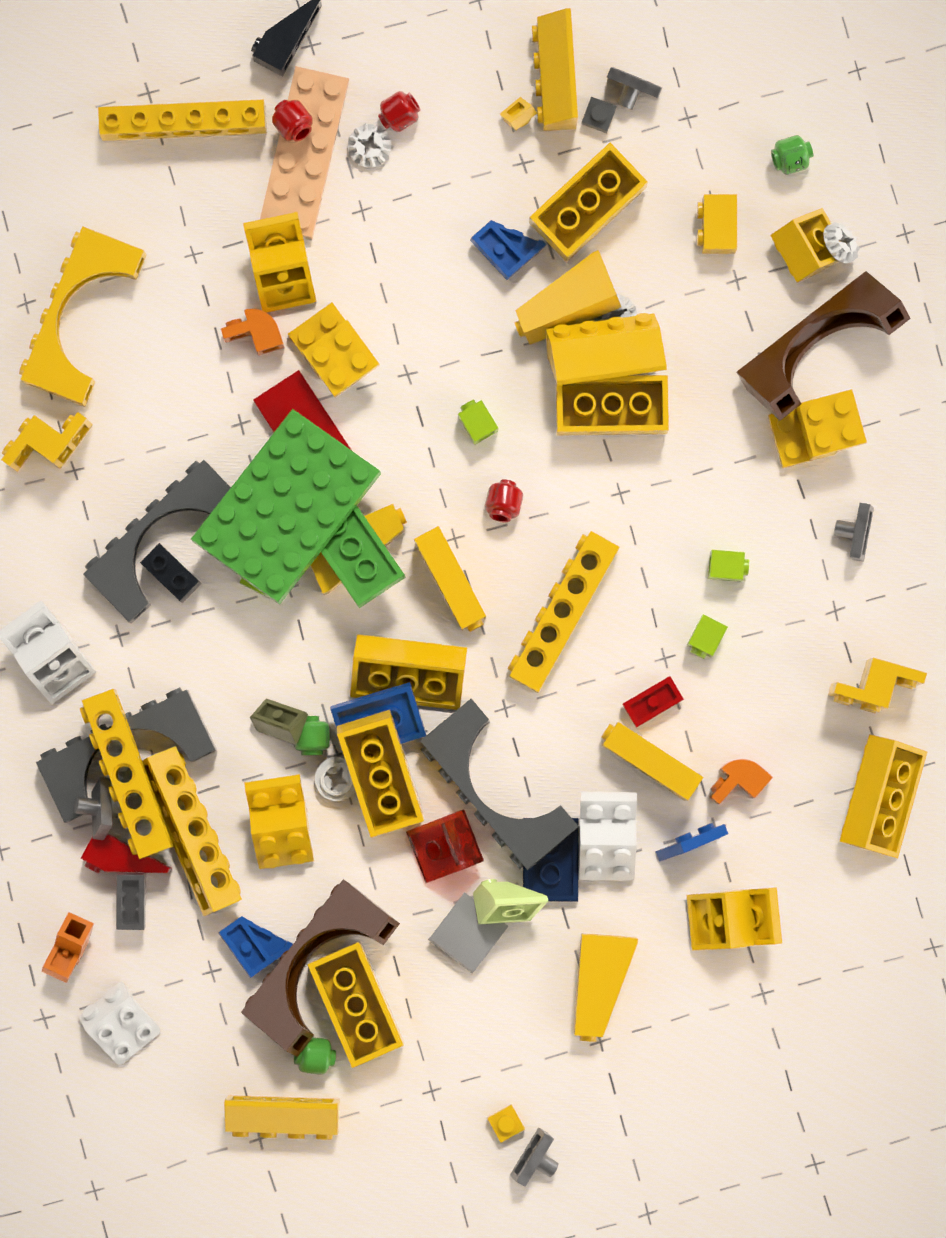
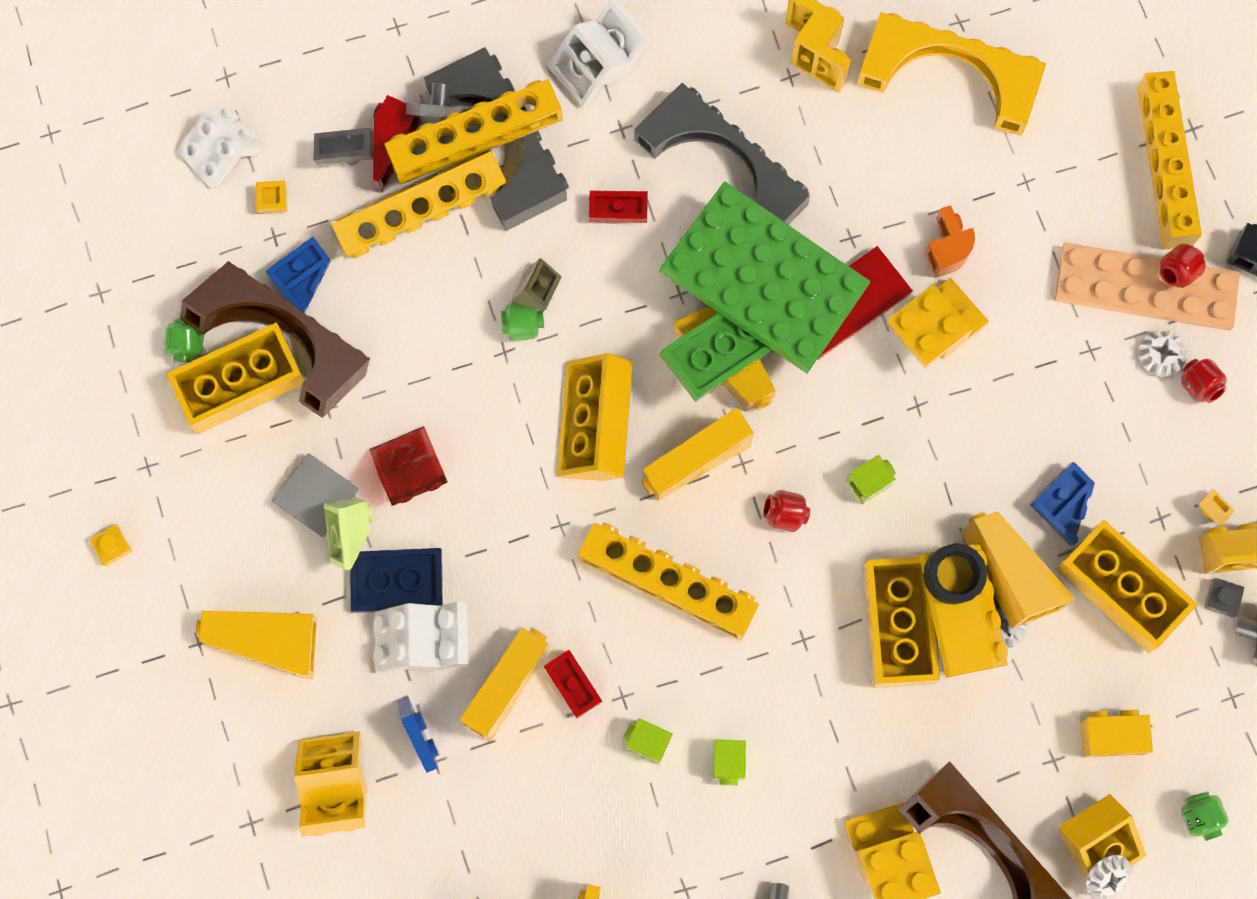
camera: 90 degrees right, 10 degrees down
(68, 947) = (297, 93): orange brick -> none
(170, 573) = (688, 171): black brick -> none
(174, 972) = (271, 196): none -> yellow plate
(201, 641) = (618, 206): none -> red plate
(279, 821) = (429, 290): yellow bracket -> none
(280, 262) = (1027, 262): yellow bracket -> none
(282, 1115) = (120, 309): yellow slope -> none
(324, 783) = (472, 339): white gear -> none
(380, 773) = (482, 388): yellow brick -> none
(398, 700) = (540, 388): blue plate -> none
(451, 747) = (512, 467): dark grey arch -> none
(535, 1158) = (70, 576): flat silver tile -> none
(584, 334) = (974, 559): none -> black tyre
(740, 772) = (495, 789): orange brick -> none

